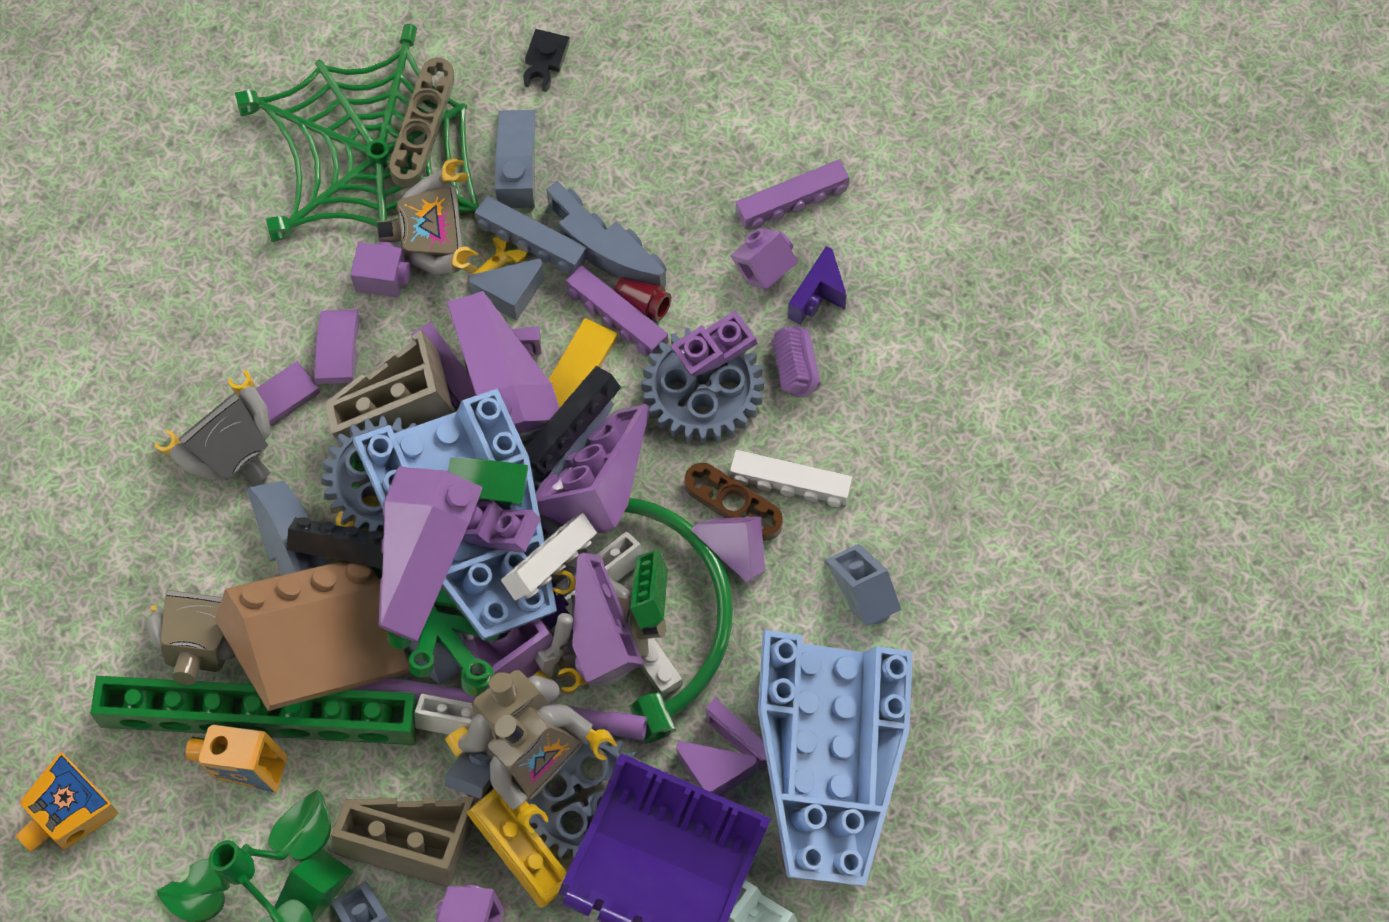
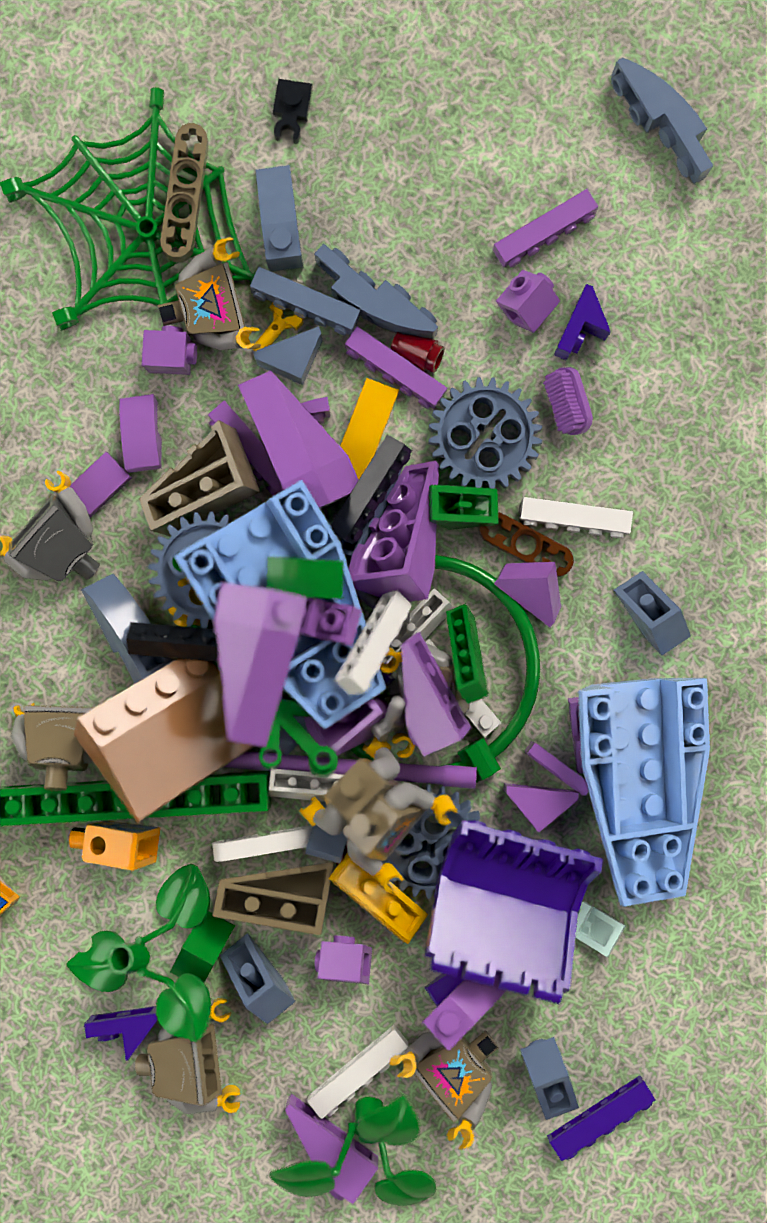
camera: 10 degrees left, 20 degrees up
(387, 779) = (253, 845): none -> white beam
(666, 450) = (463, 506): none -> green slope
(715, 346) = (494, 398): medium lavender slope -> none
(927, 93) = (659, 105): none -> sand blue slope

